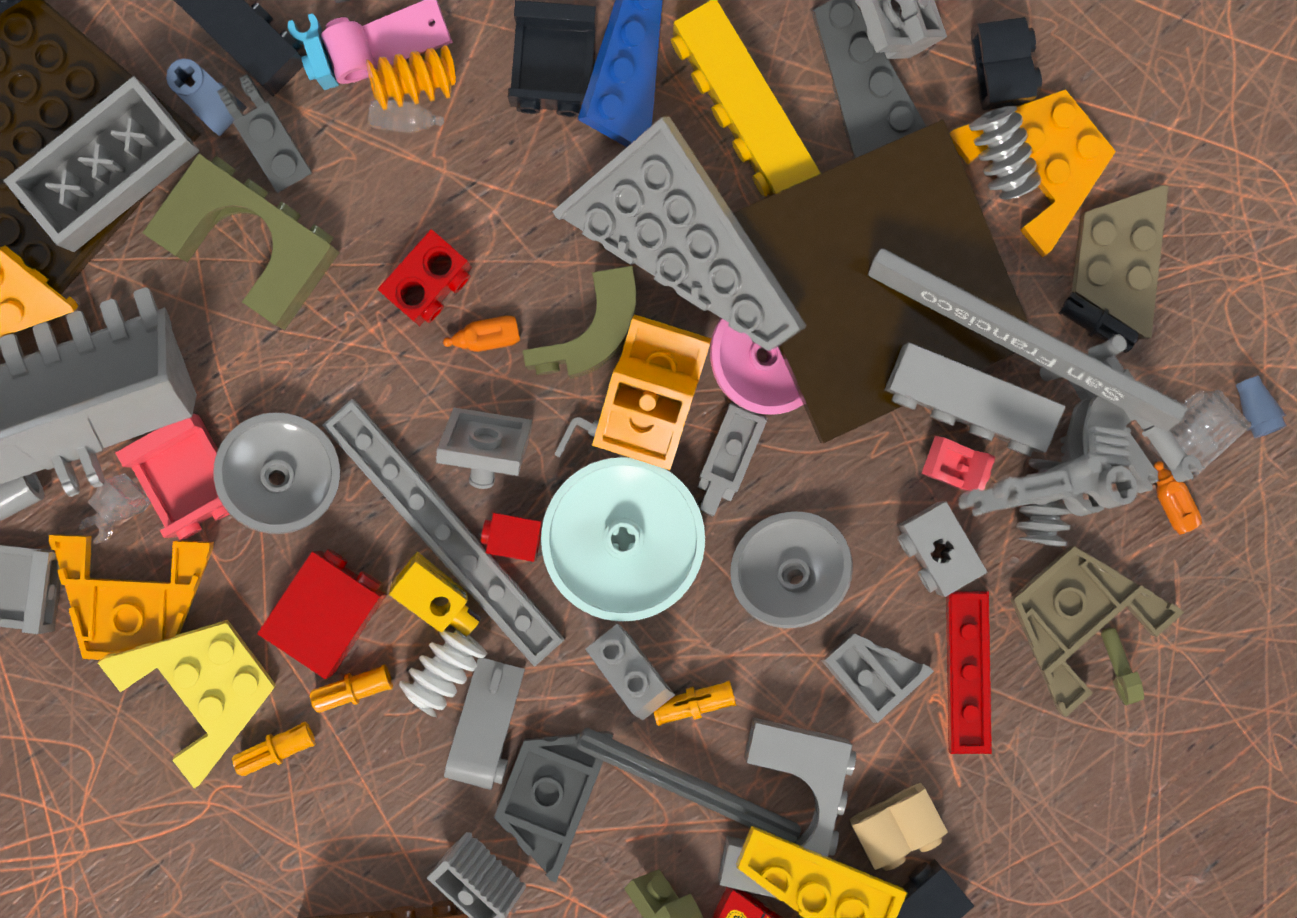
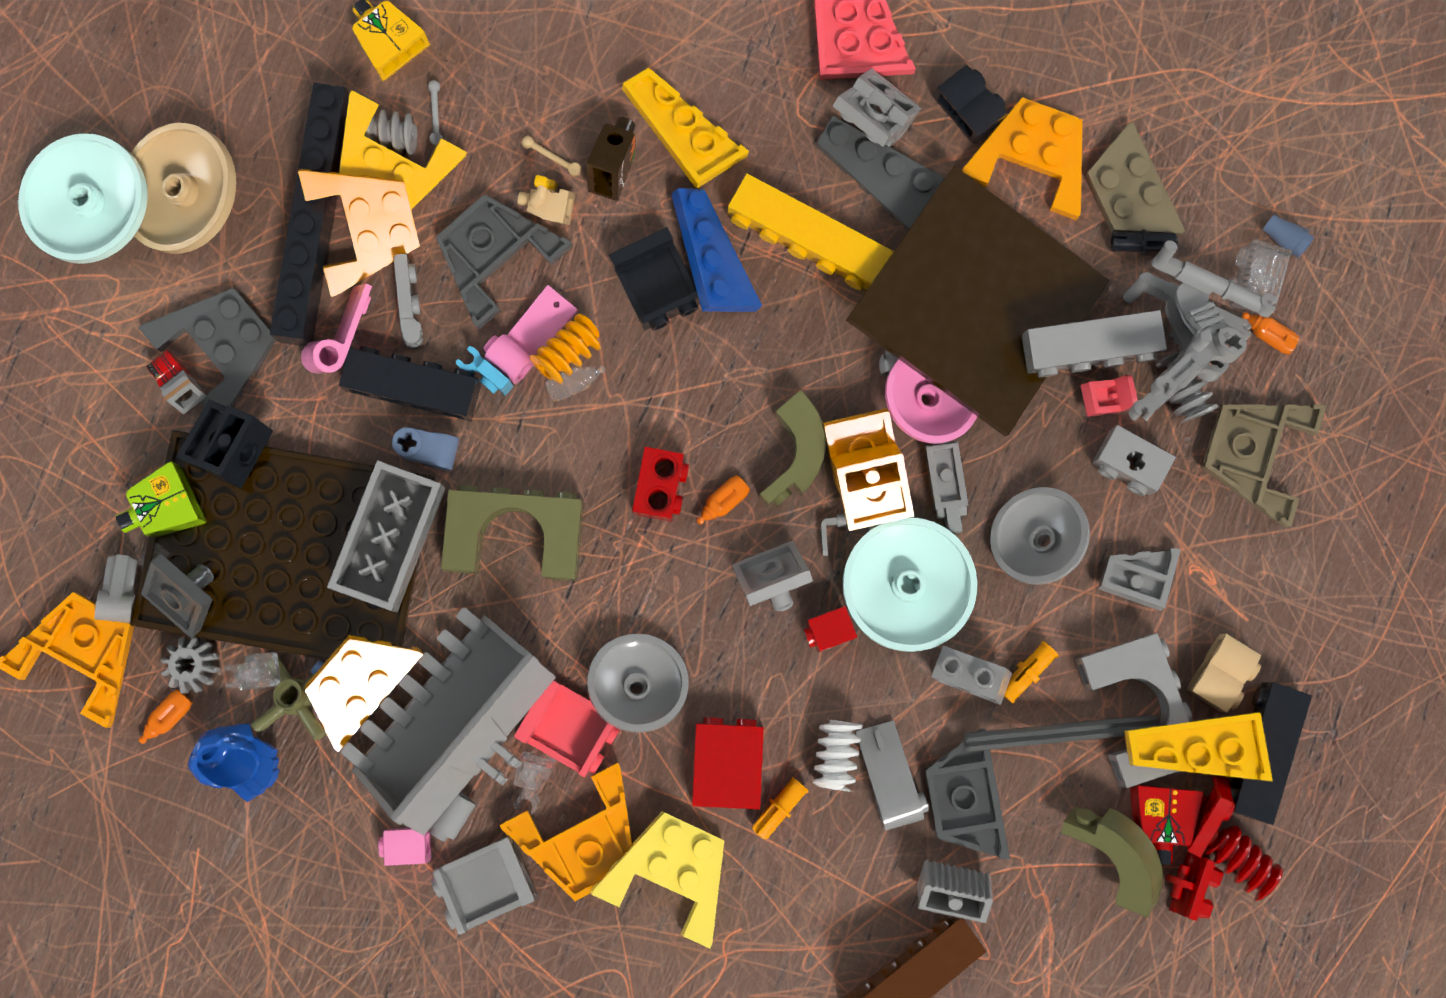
camera: 30 degrees left, 5 degrees down
(266, 137) = (489, 451): dark grey hinge -> none
(274, 749) = (750, 885): light orange axle -> none
(421, 583) = (789, 703): yellow torso -> none
(443, 532) = (778, 657): light grey tile -> none
(669, 219) = (812, 342): light grey wing -> none
(968, 672) = (1204, 536): red tile -> none
(1007, 152) = (1010, 161): light grey piece -> none
(1027, 341) = (1106, 281): light grey tile -> none
(1127, 683) = (1318, 478): olive bar -> none

